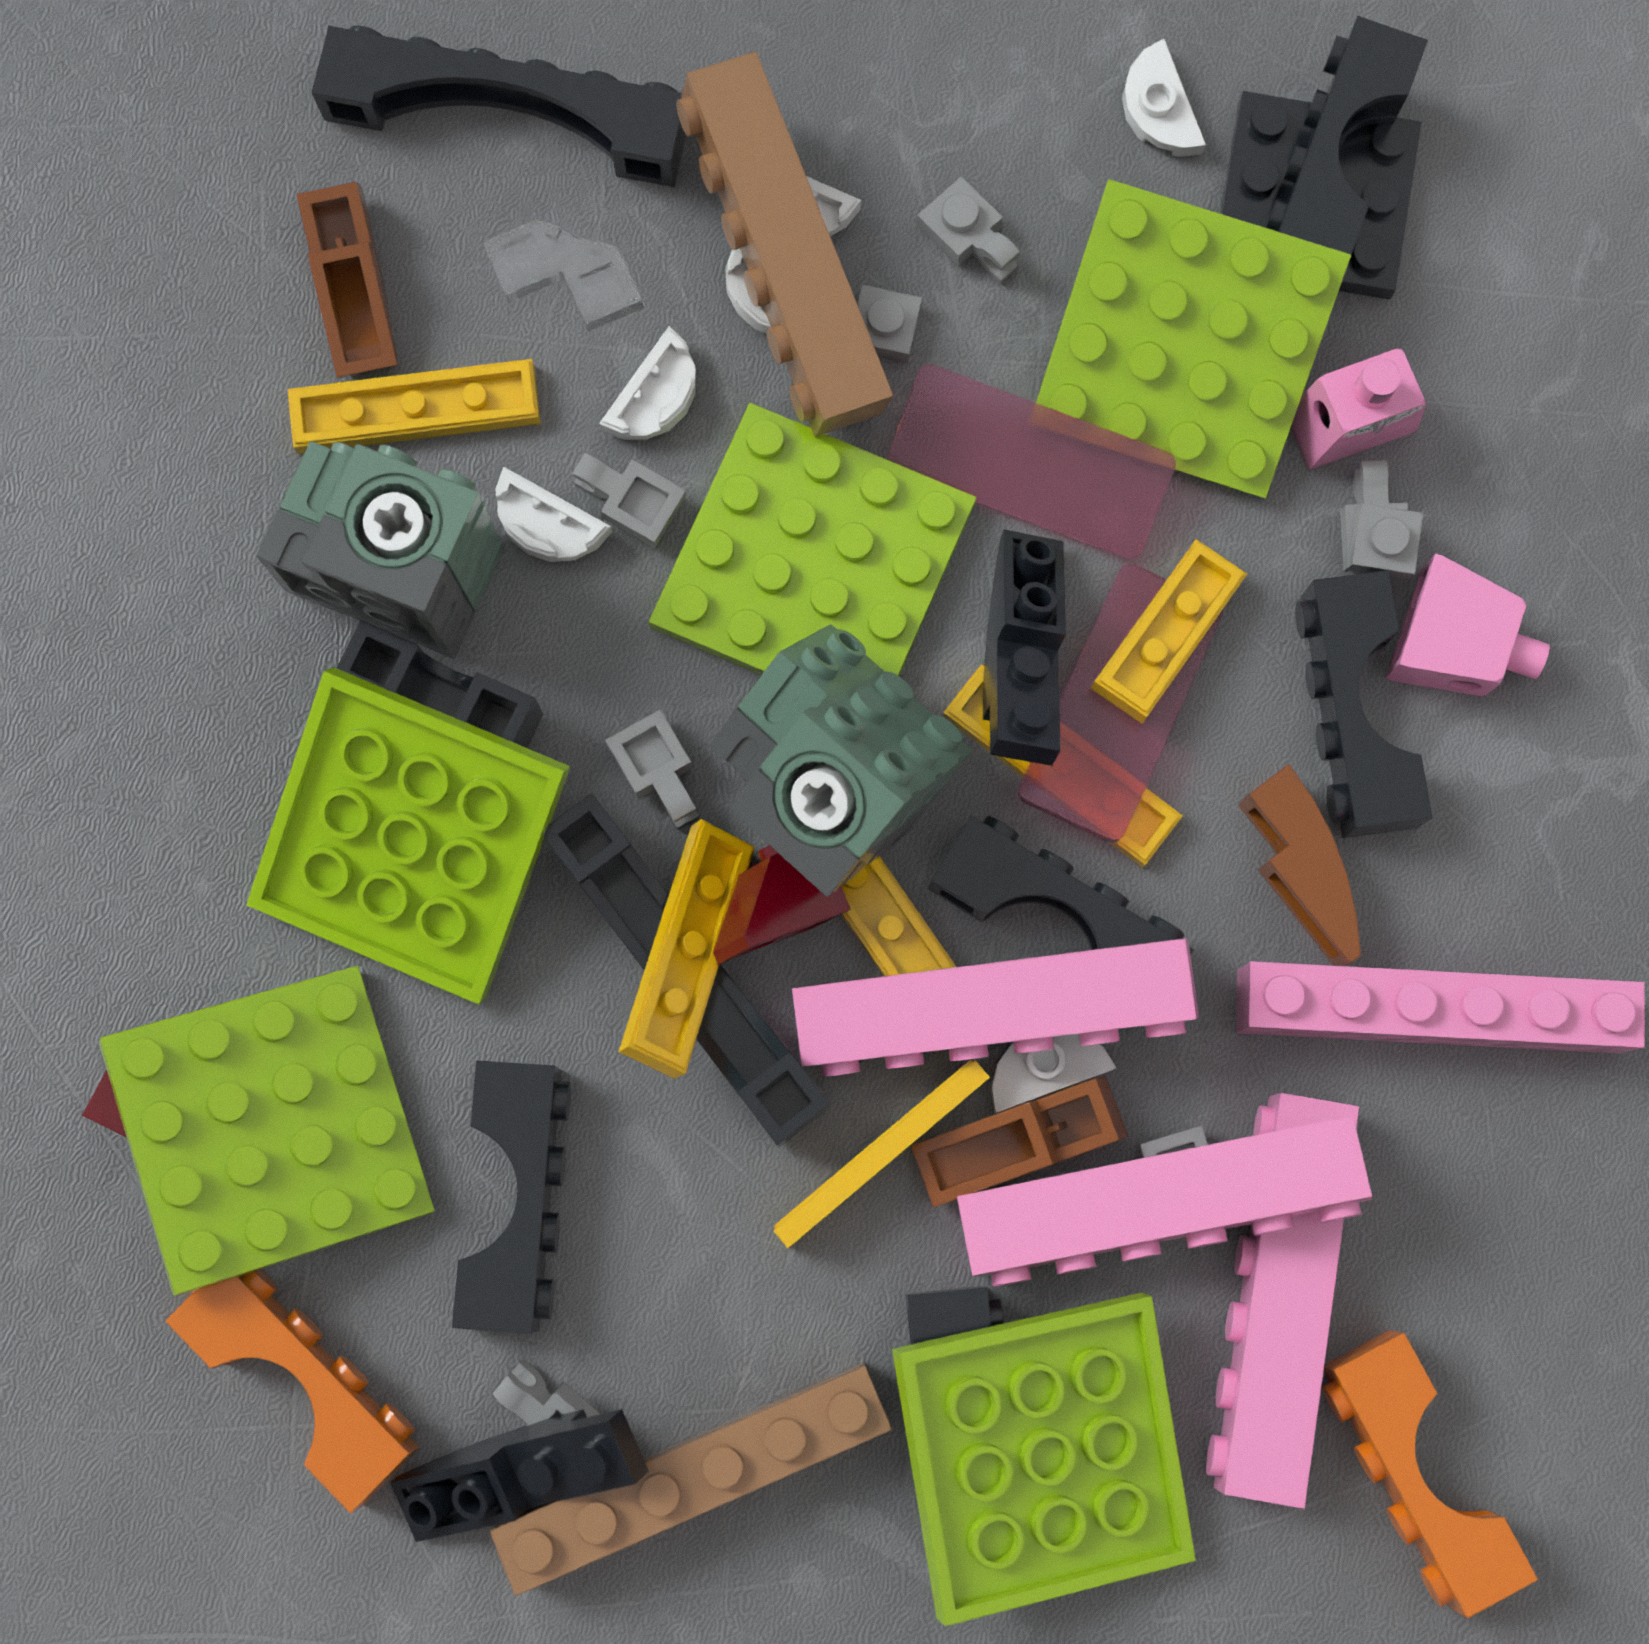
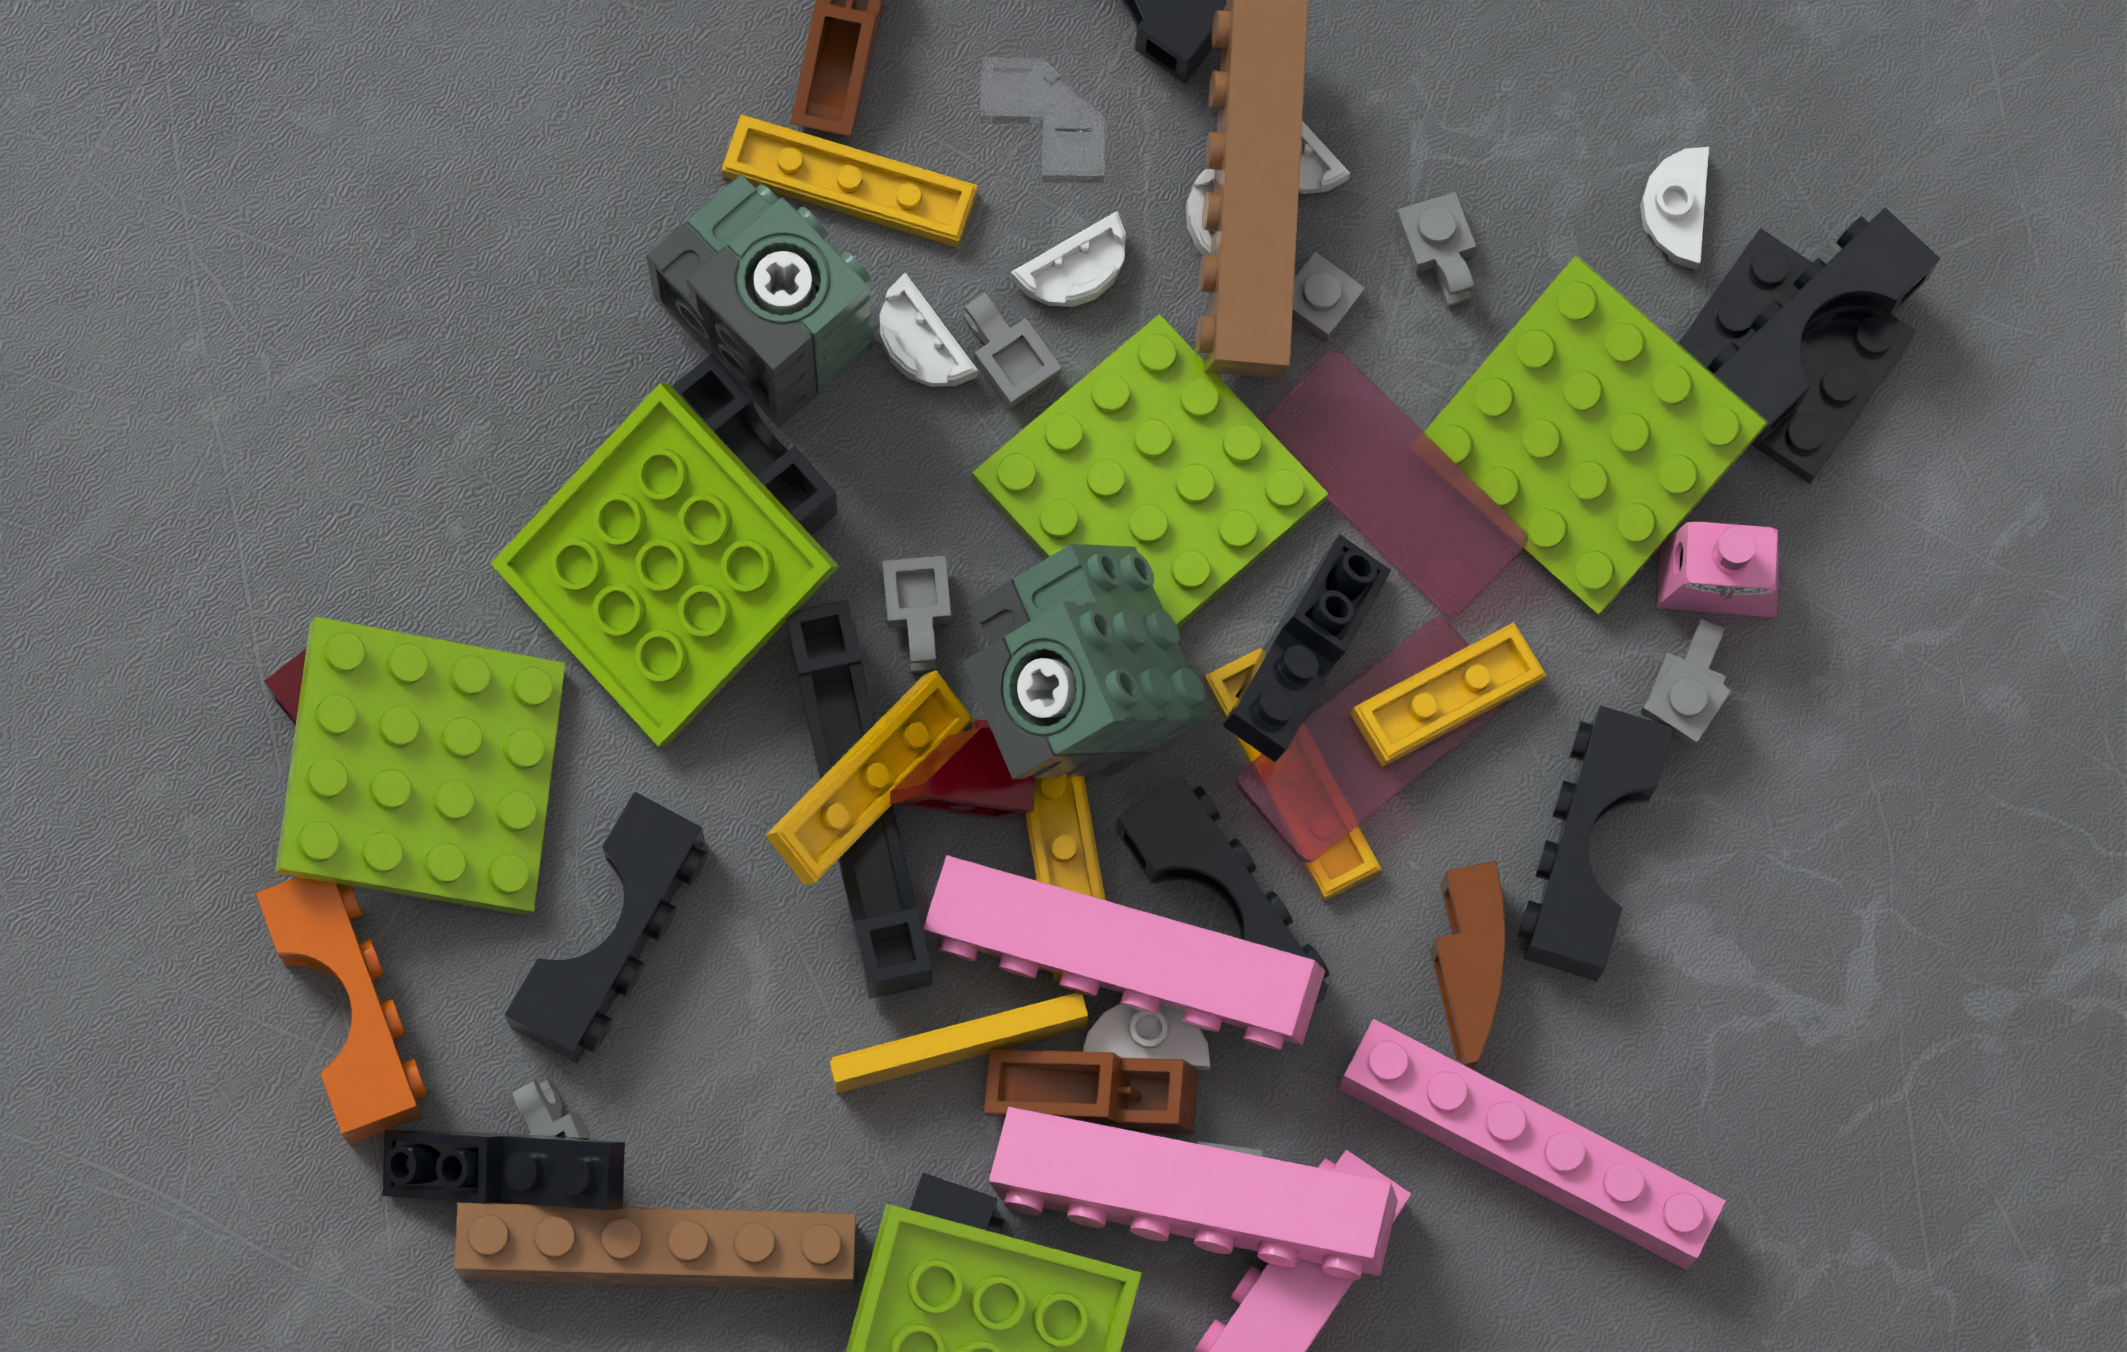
camera: 20 degrees right, 5 degrees down
(1462, 633) = (1720, 820): bright pink torso -> none

